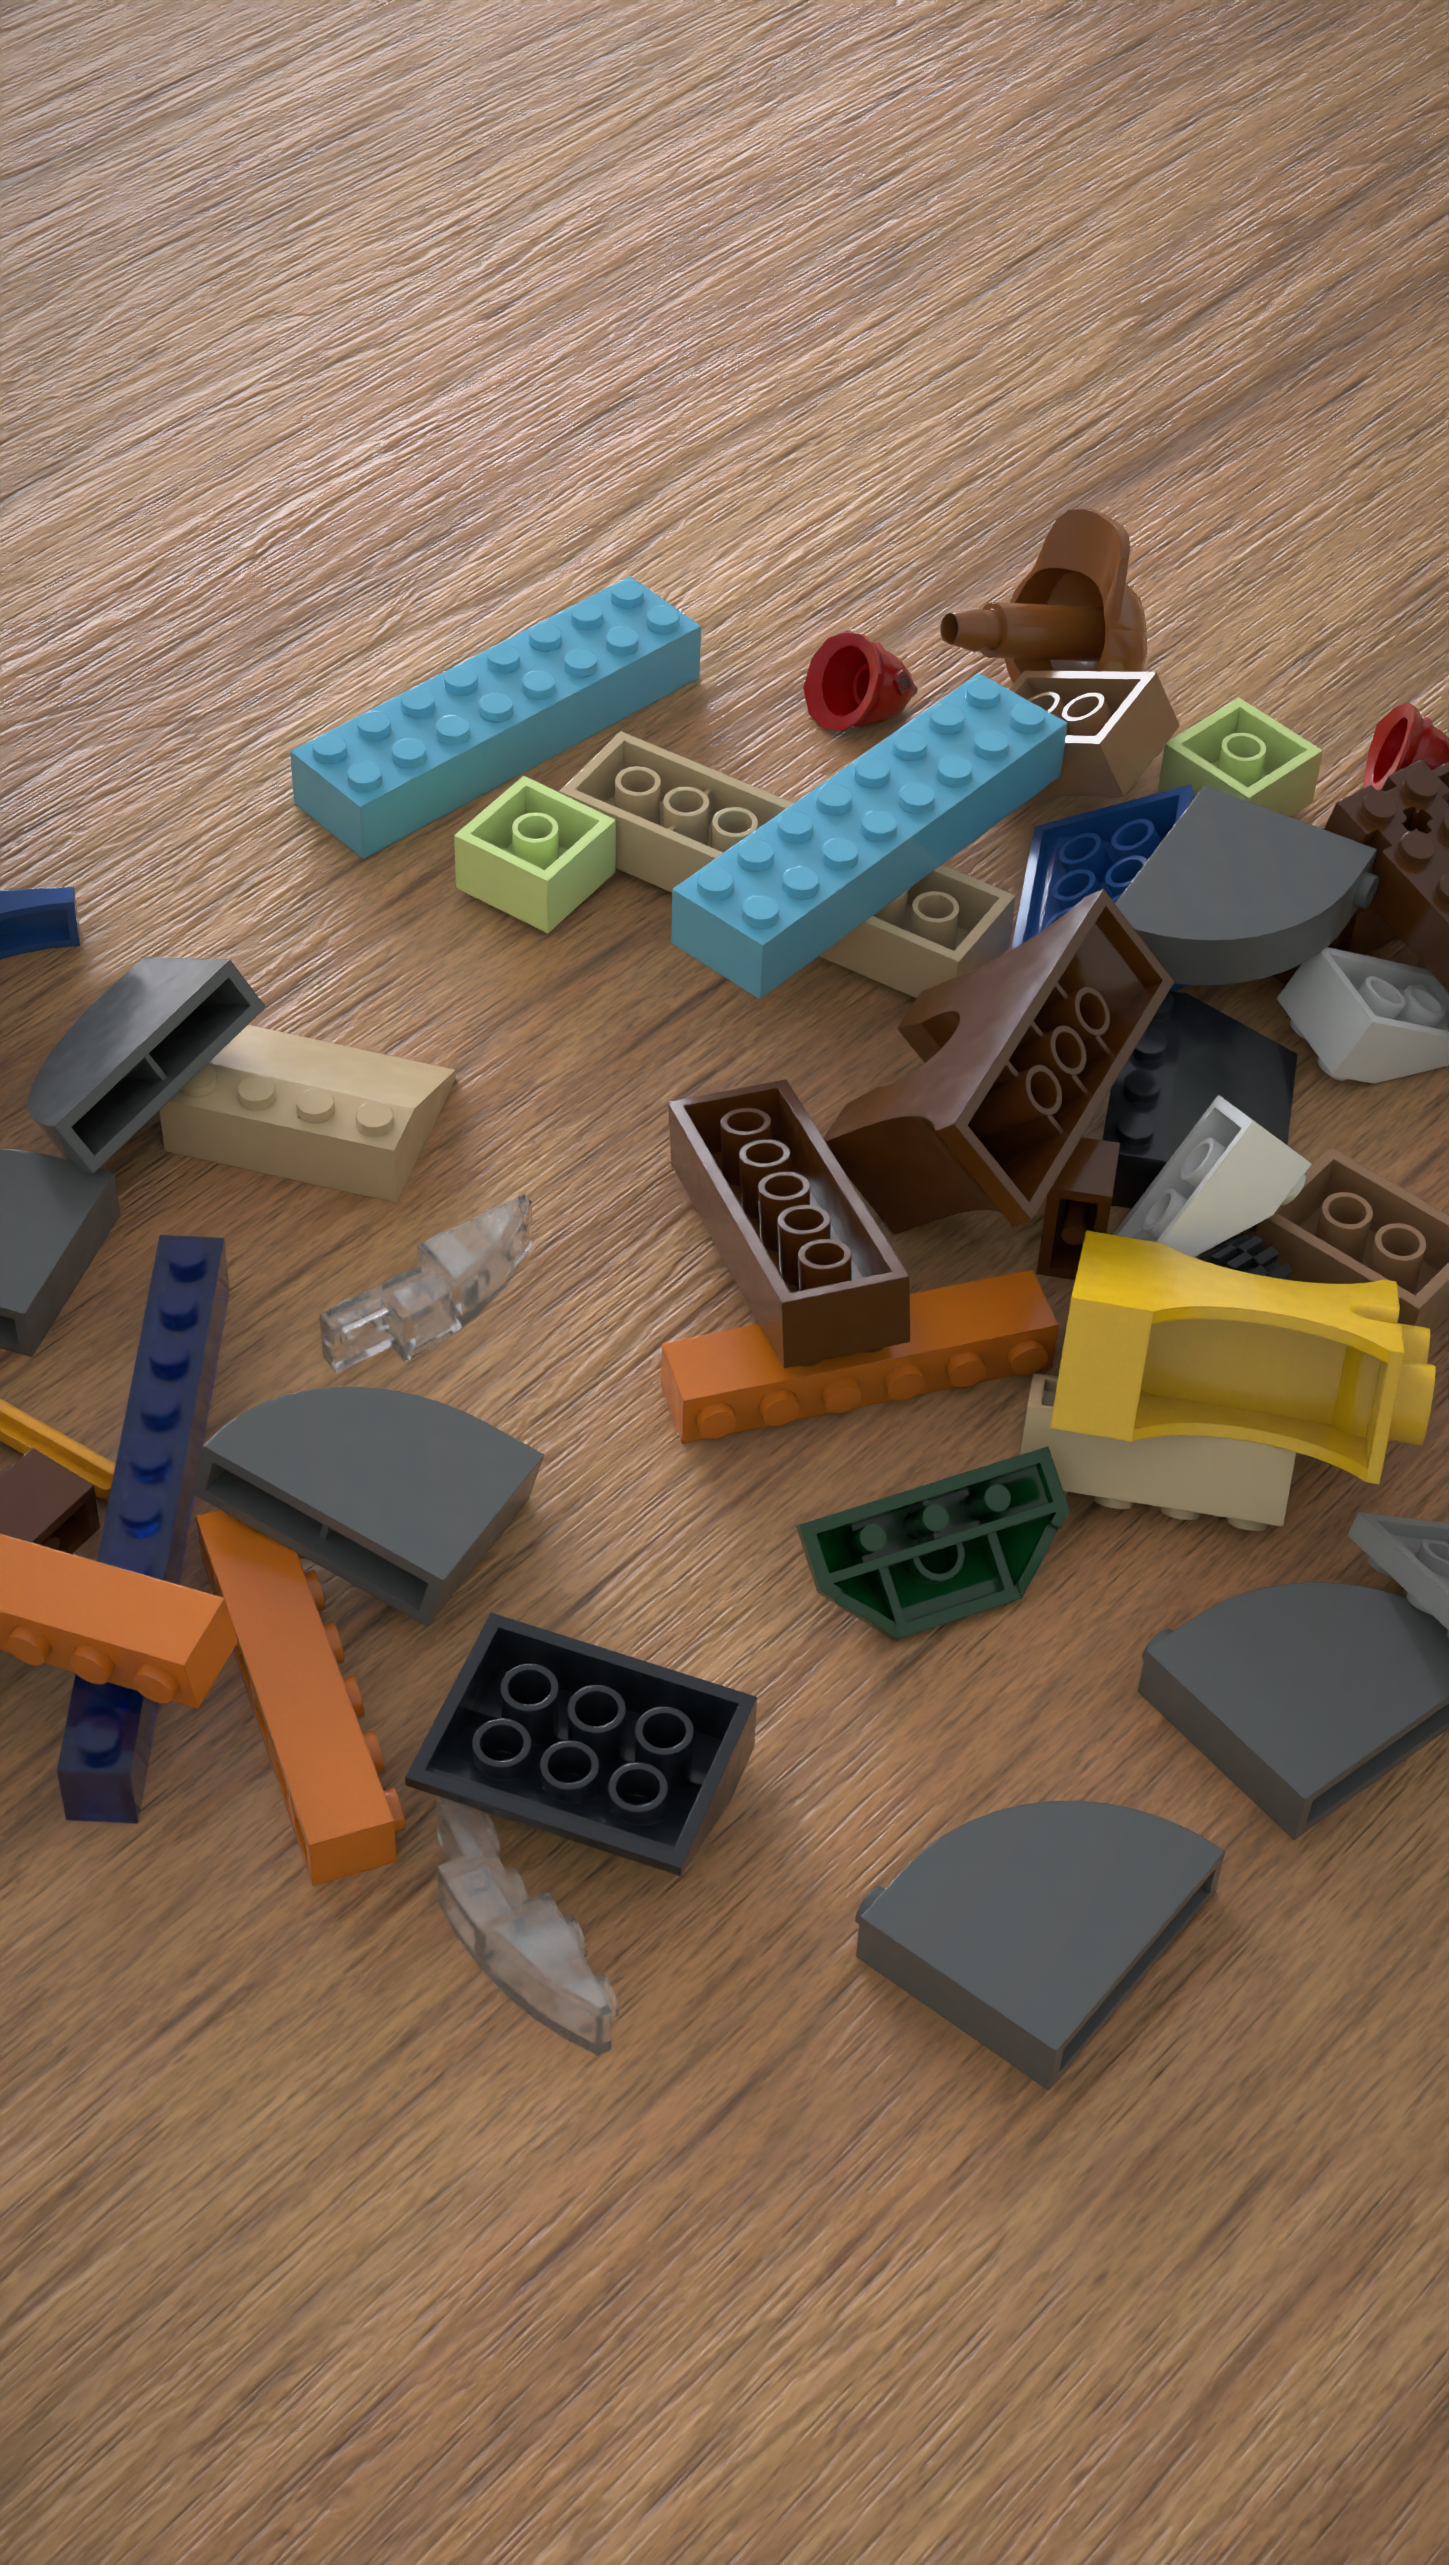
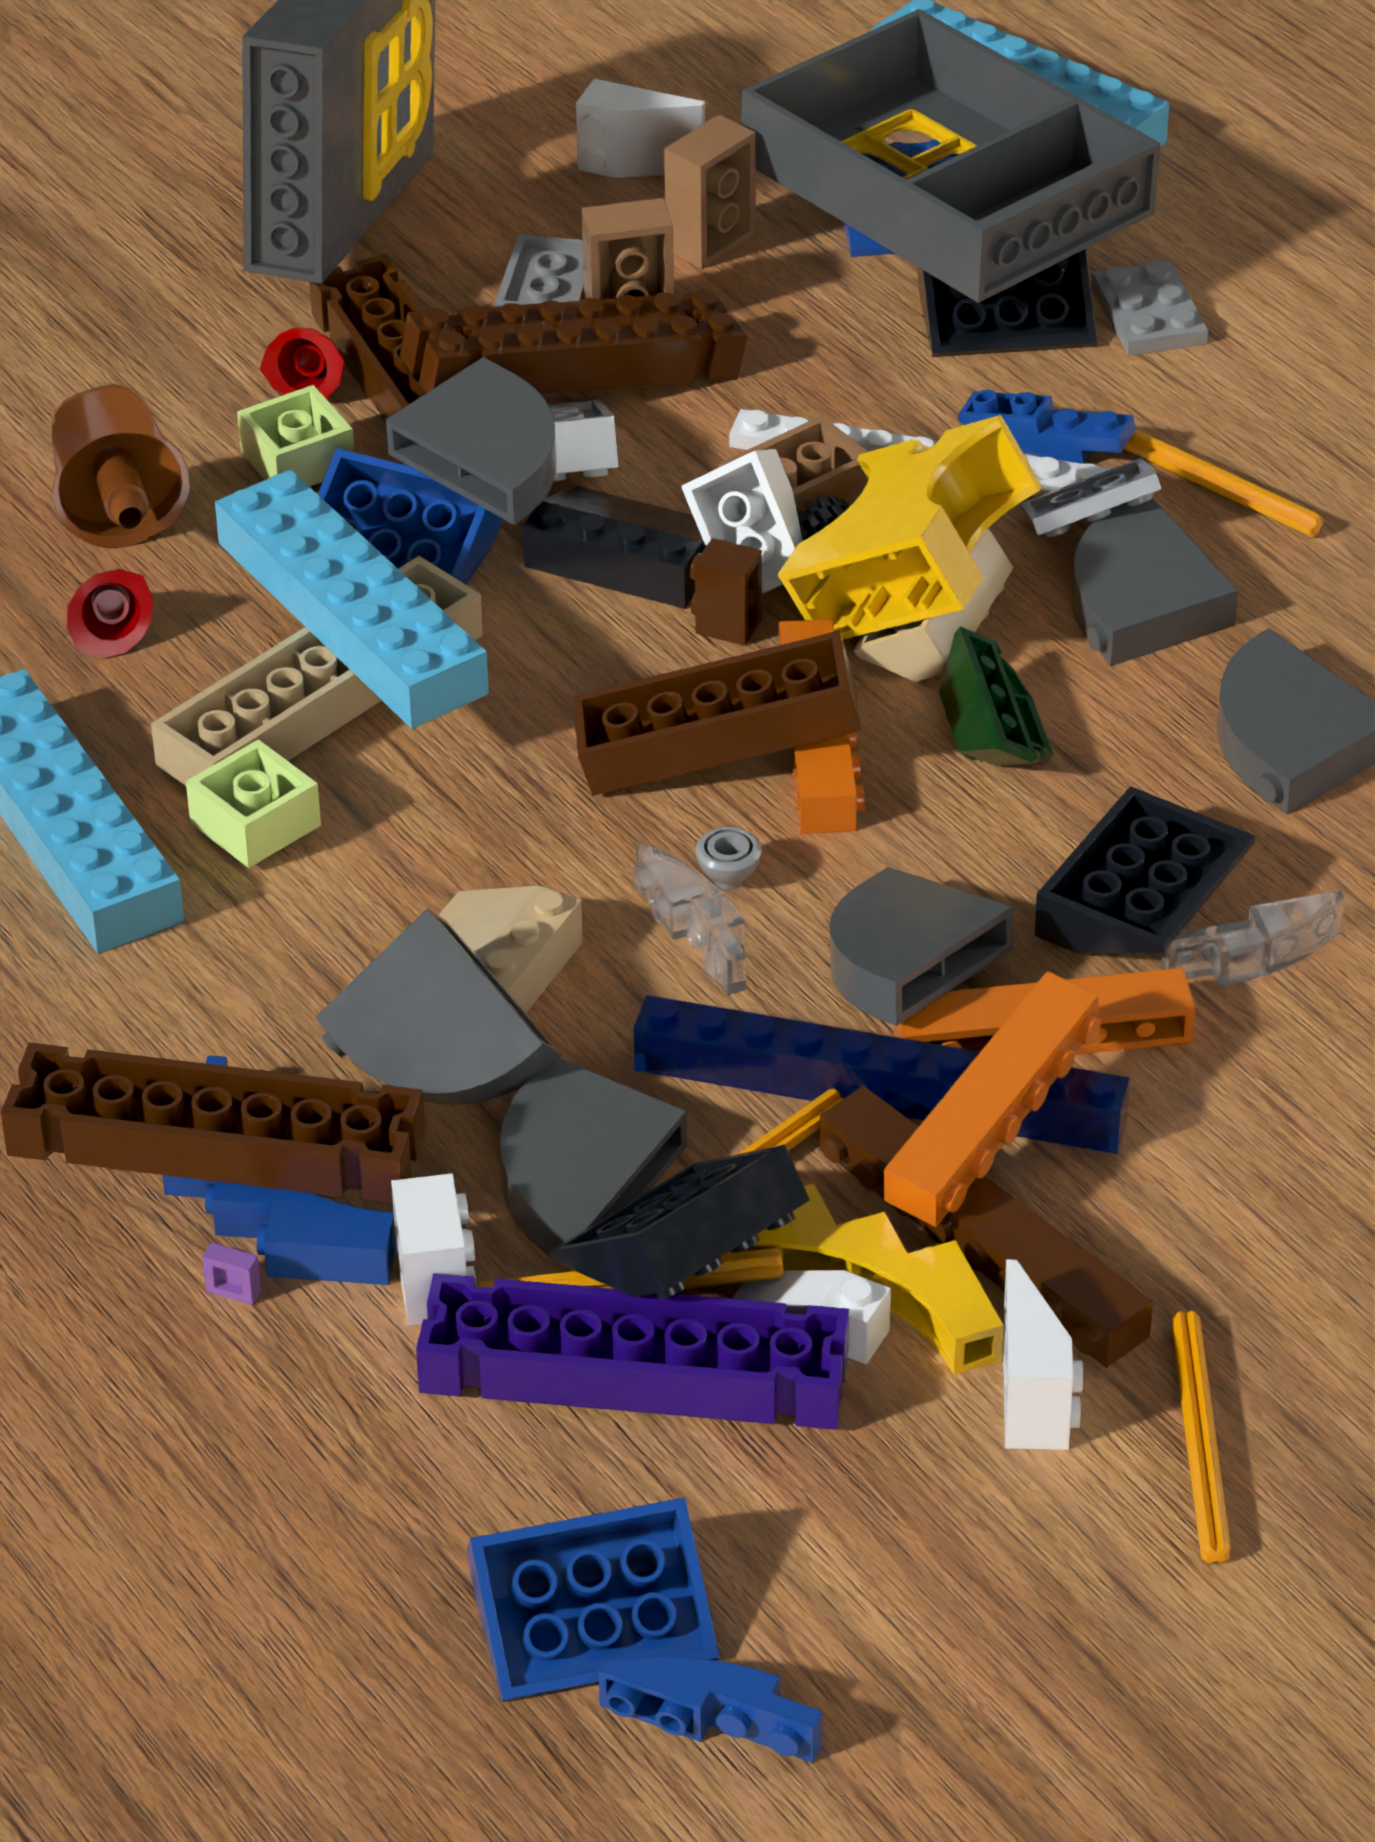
camera: 75 degrees left, 5 degrees down
(547, 1294) = (728, 856): none -> light grey brick
(1008, 1073) = (608, 543): reddish brown piece -> none
(1112, 726) = (243, 461): medium nougat brick -> none

